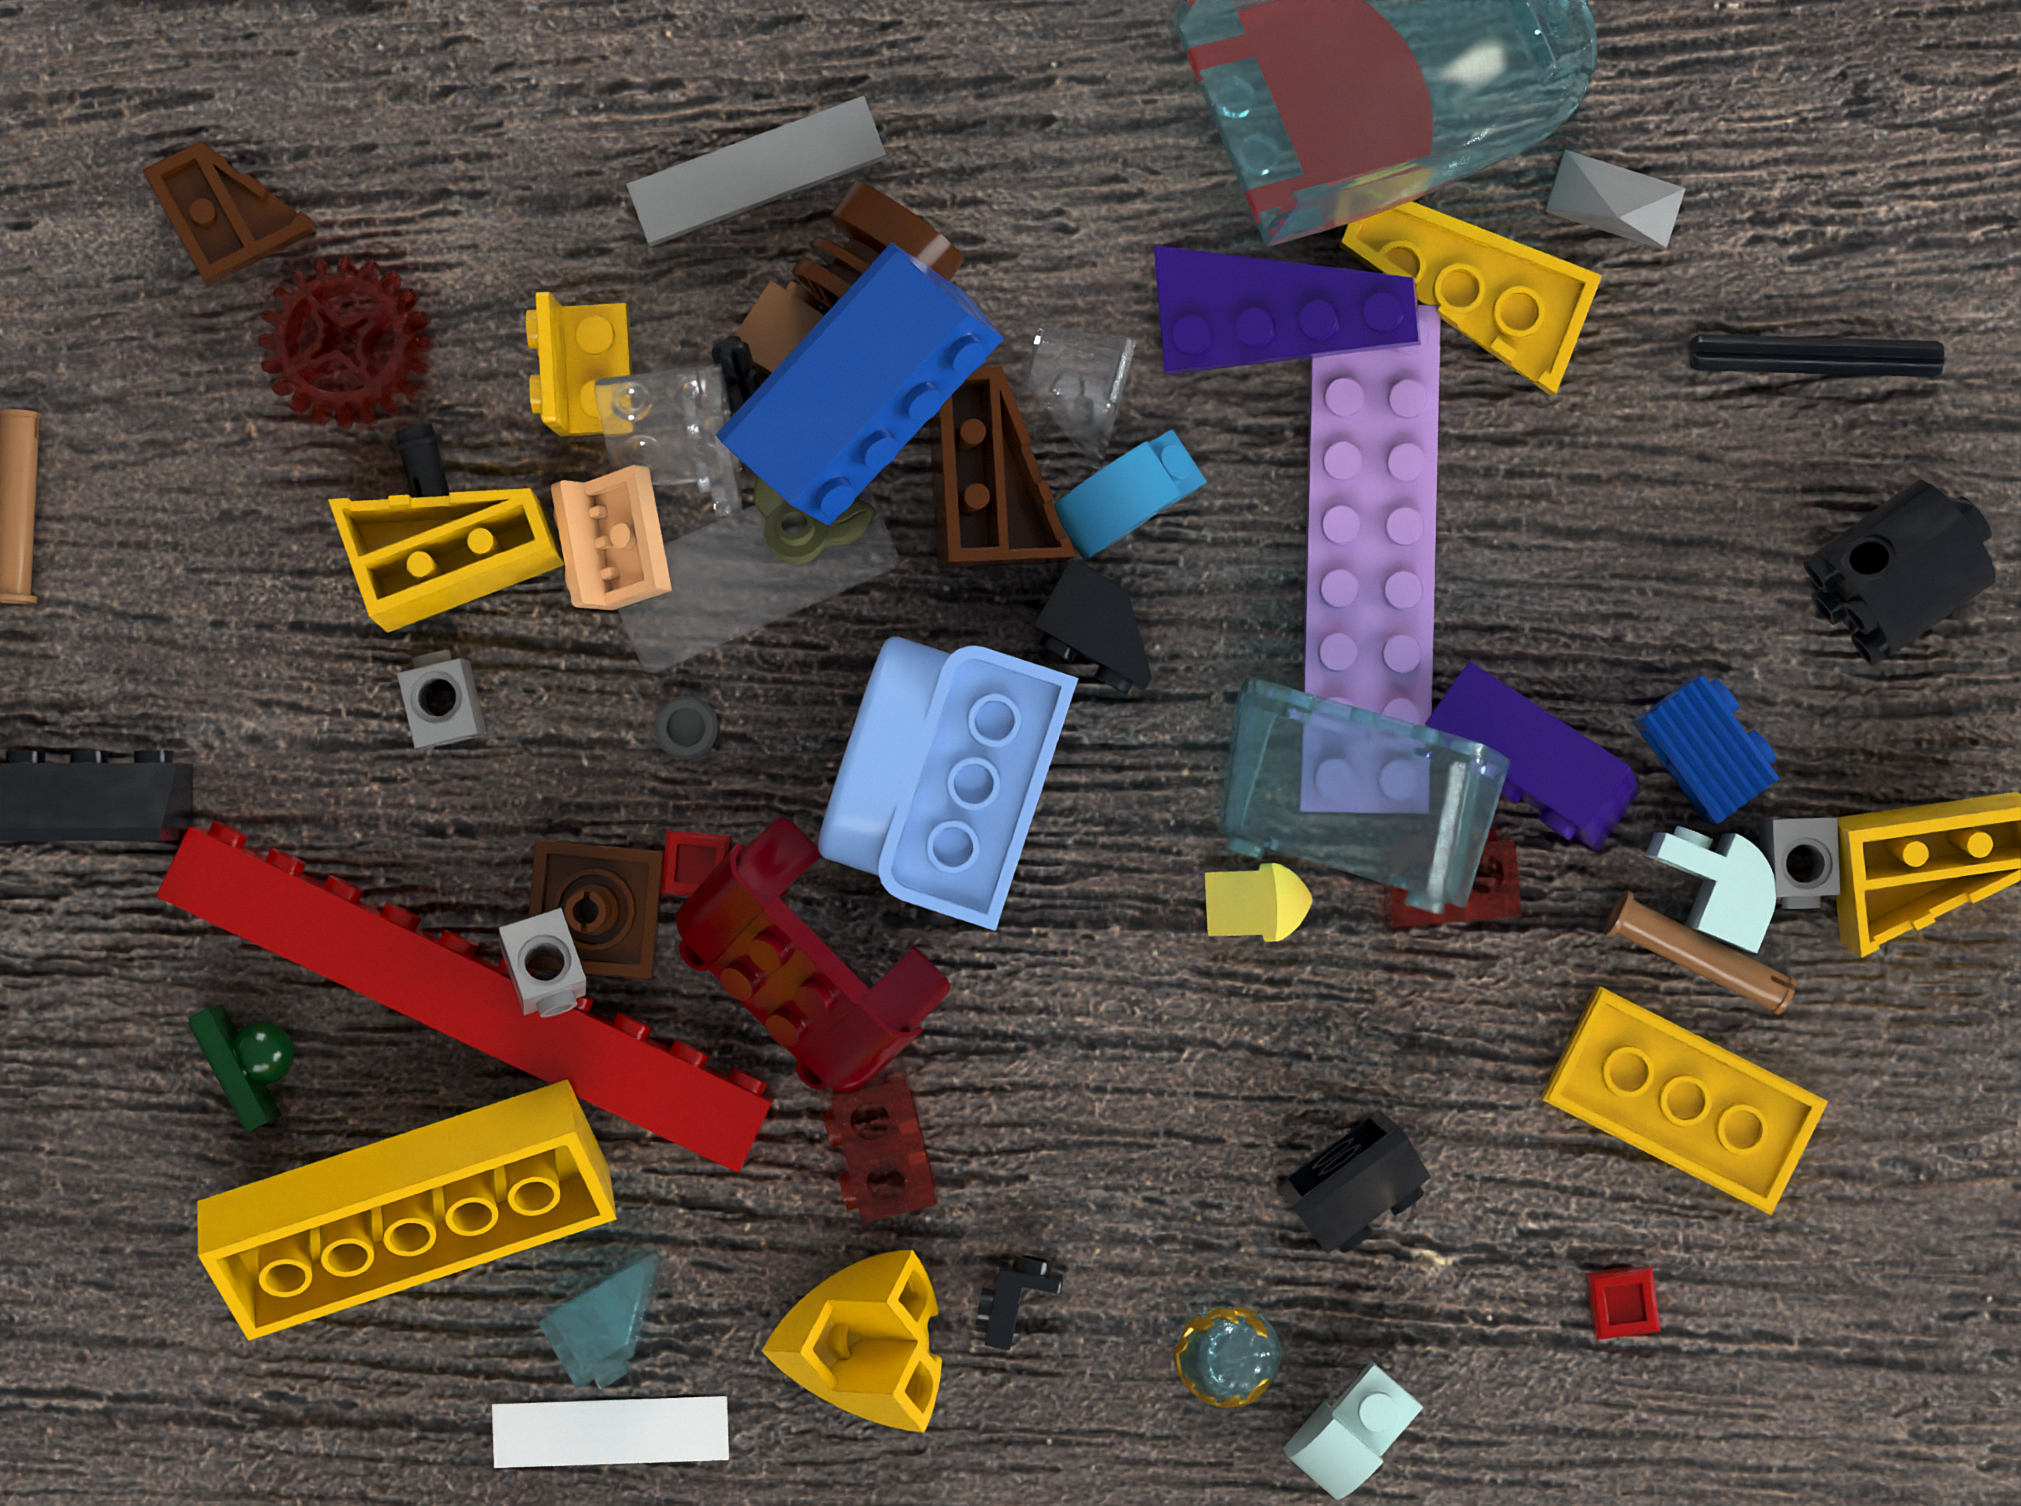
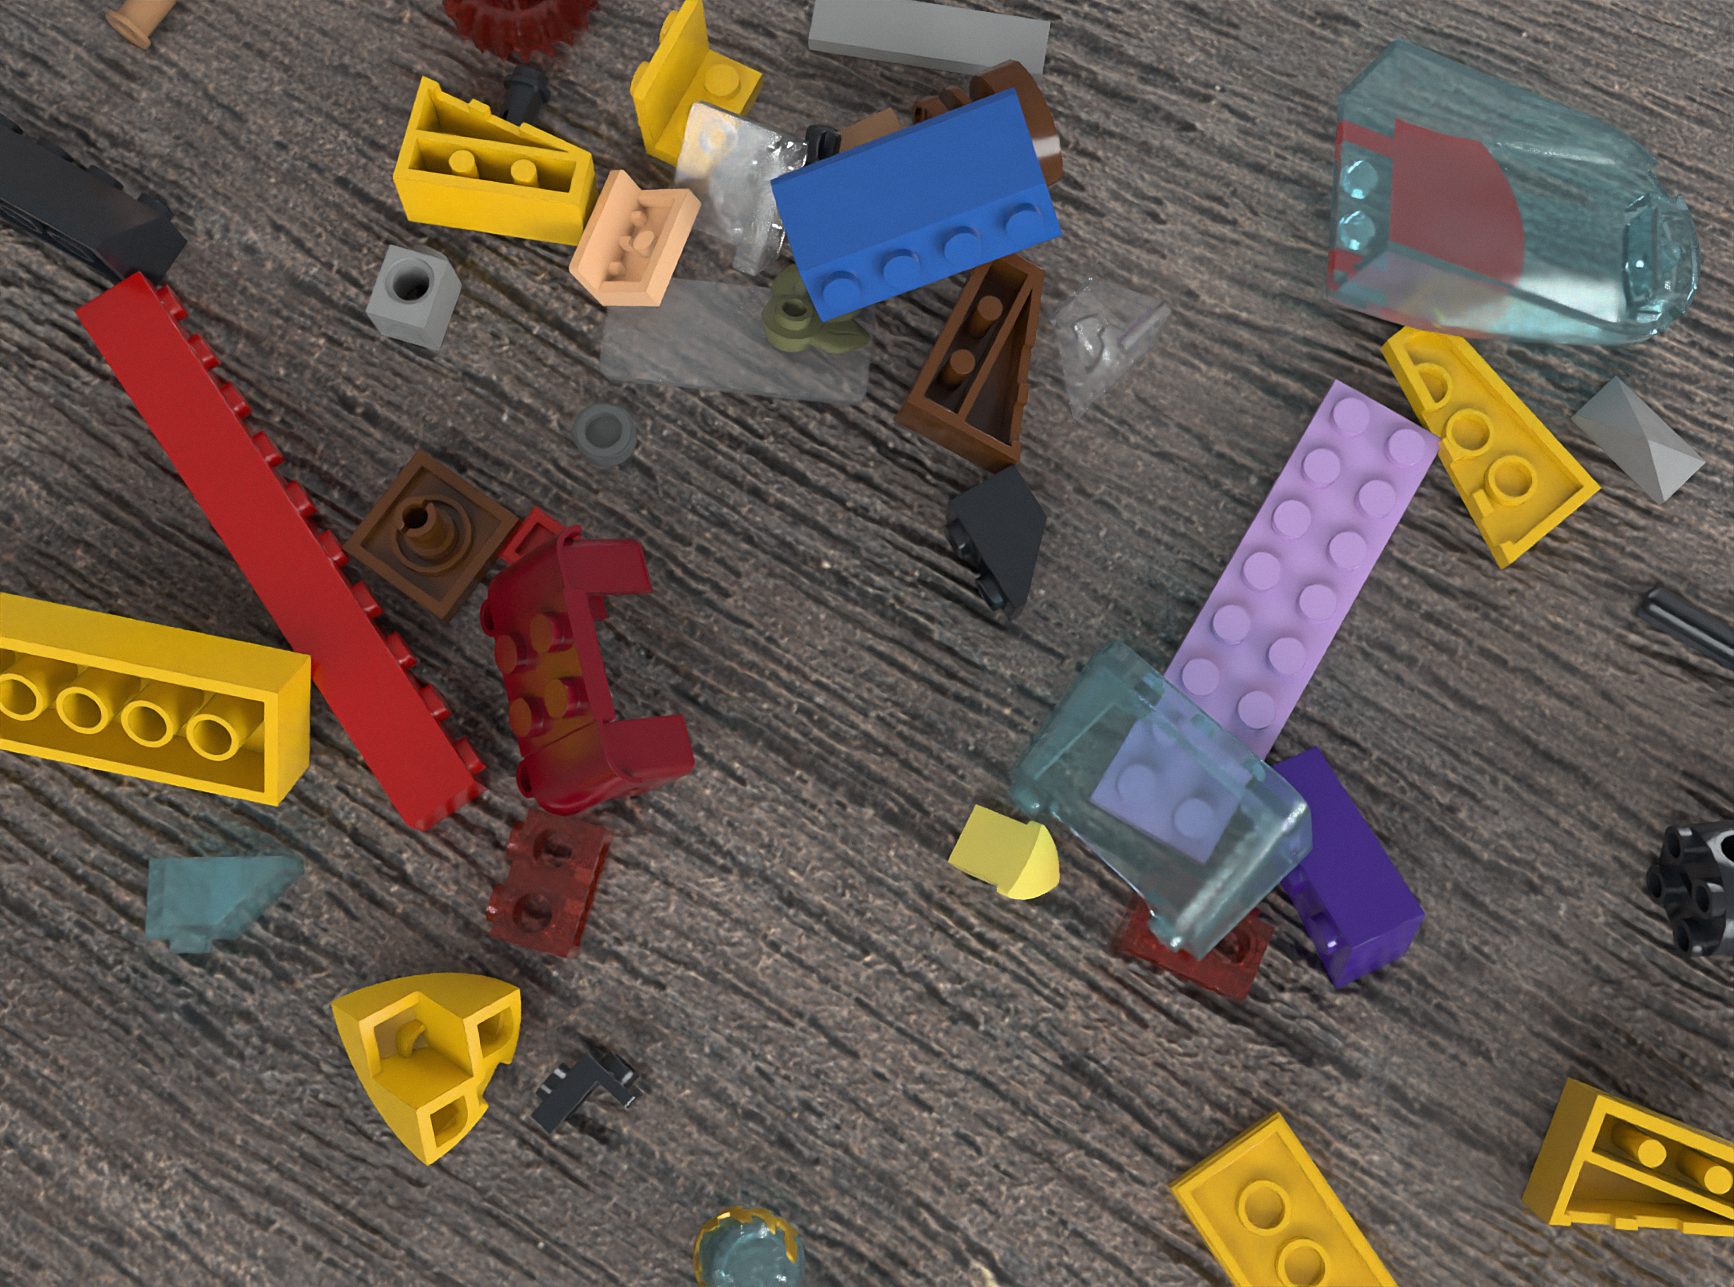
camera: 25 degrees right, 10 degrees down
(244, 1062) = (57, 495): dark green tile -> none
(535, 937) = (357, 518): light grey brick -> none
(610, 1432) = (161, 1002): white sticker -> none
(945, 774) = (801, 576): light blue brick -> none
(1128, 493) = (1090, 439): dark azure brick -> none
(1262, 311) = (1296, 362): dark purple wing -> none
(1356, 1182) = (959, 1164): black slope -> none
(1699, 953) = (1388, 1136): medium nougat pin -> none
(1708, 748) = (1490, 949): blue brick -> none
(1735, 889) = (1455, 1089): light aqua brick -> none
(1821, 841) = (1553, 1091): light grey brick -> none

